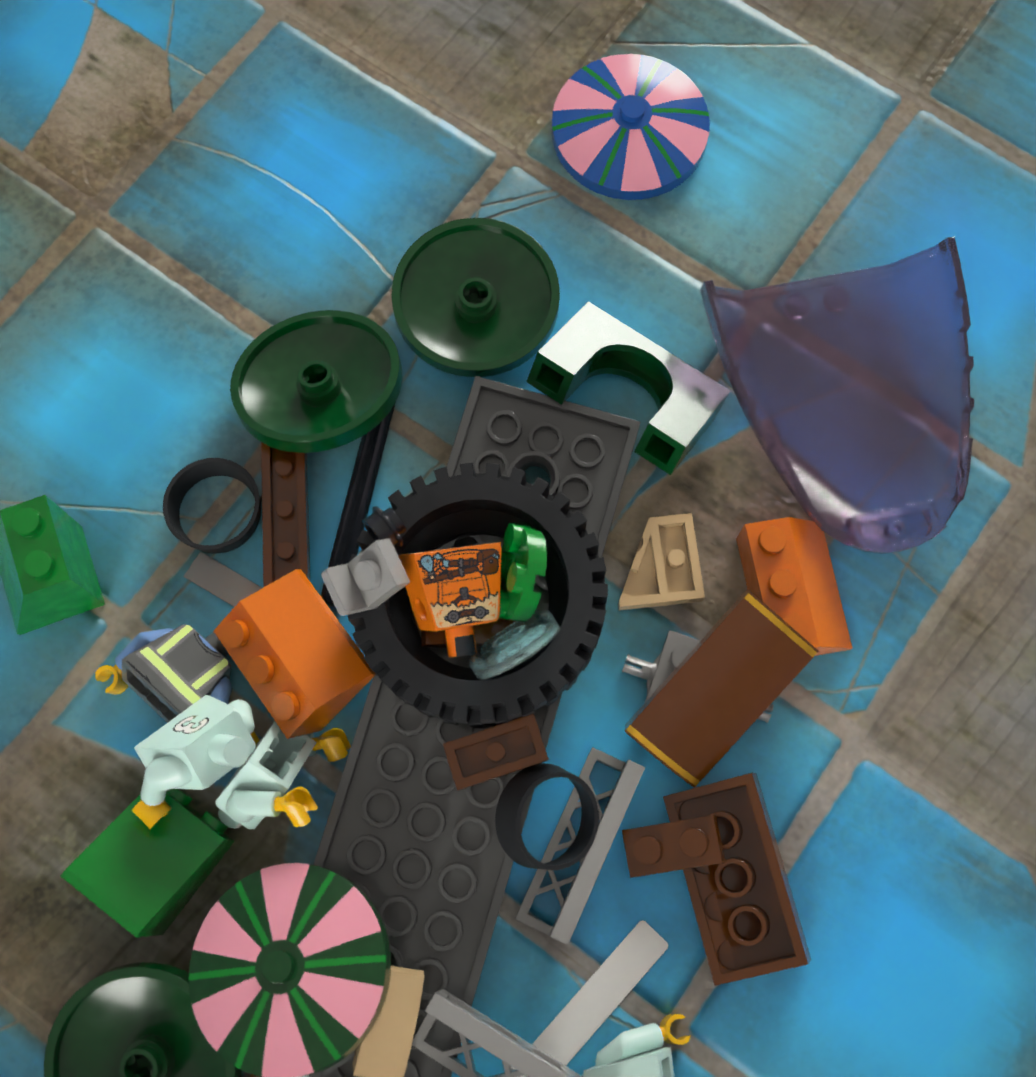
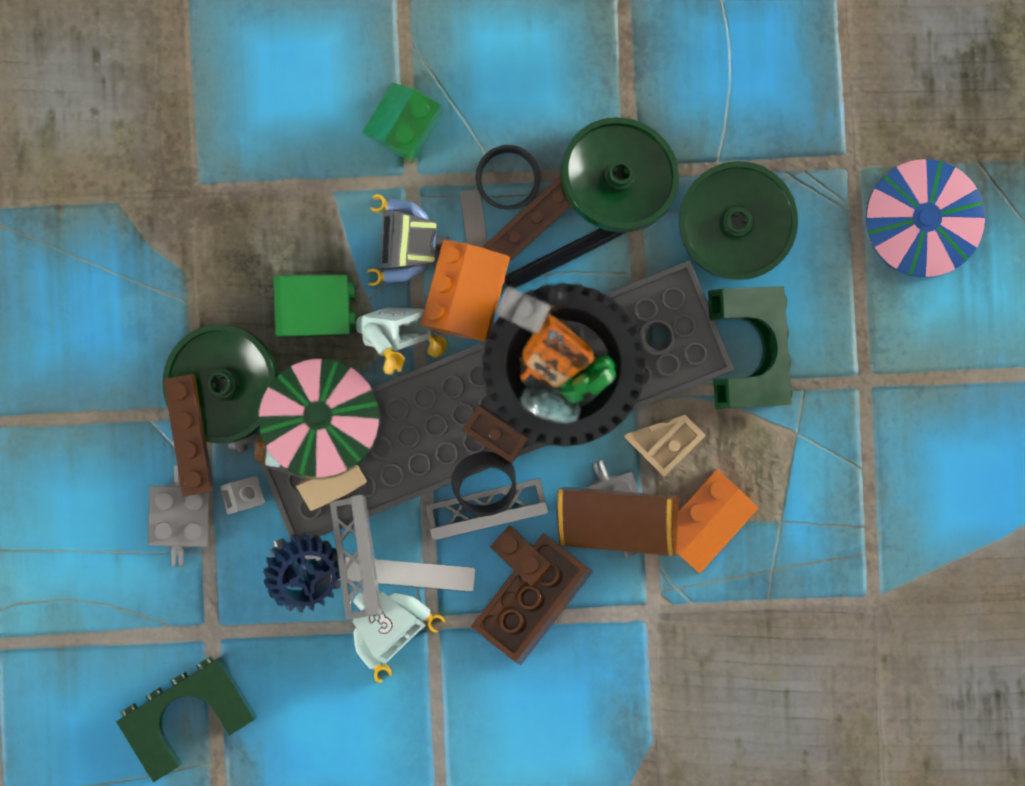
camera: 50 degrees right, 15 degrees up
(193, 752) = (379, 288): light aqua torso -> none
(858, 392) = (846, 471): clear purple windscreen -> none

